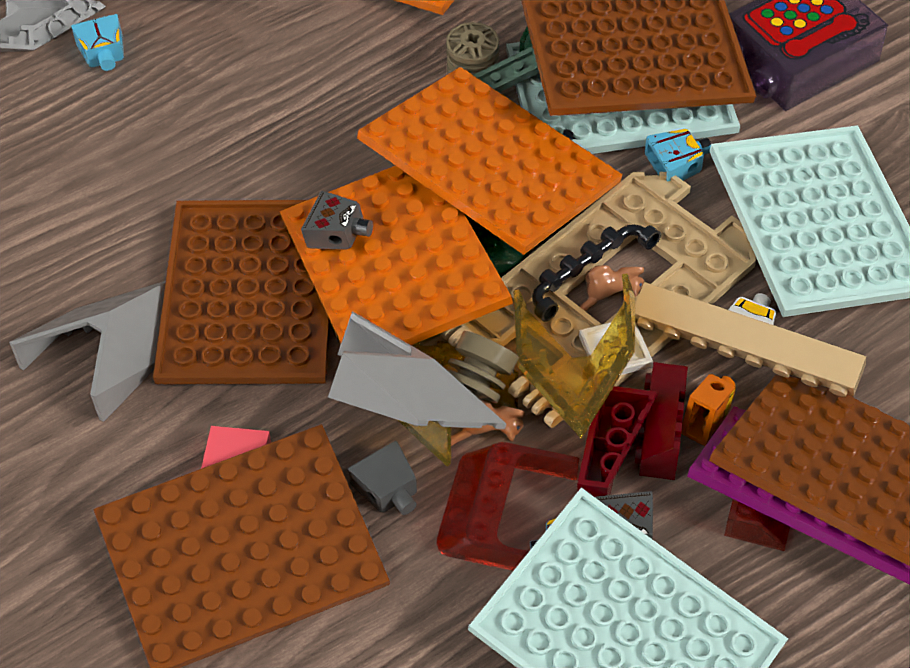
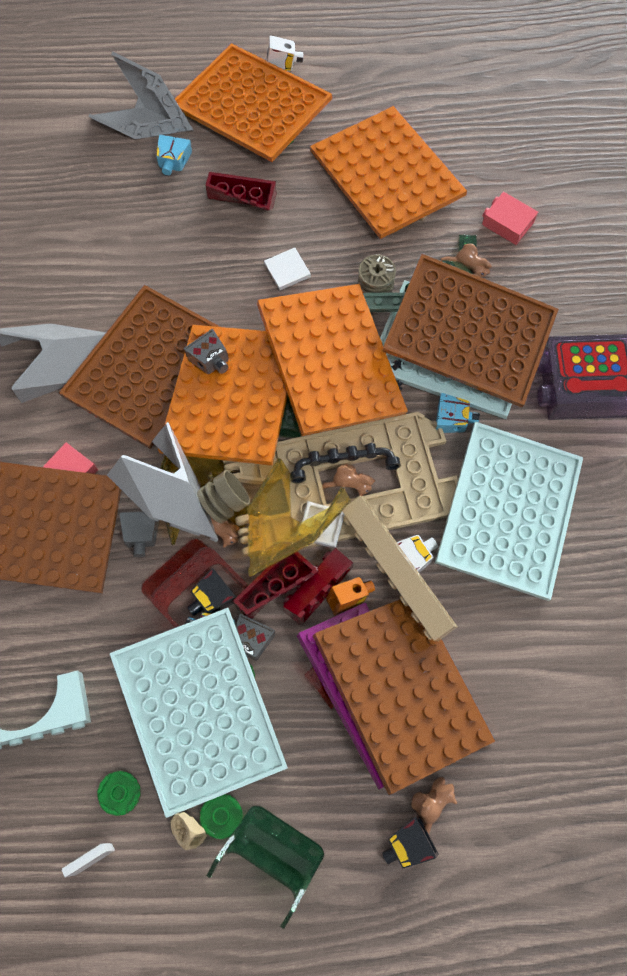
camera: 30 degrees right, 15 degrees up
(227, 39) = (241, 190): none -> dark red wedge
(348, 101) = (287, 269): none -> white tile
(537, 500) = (211, 594): none -> black torso

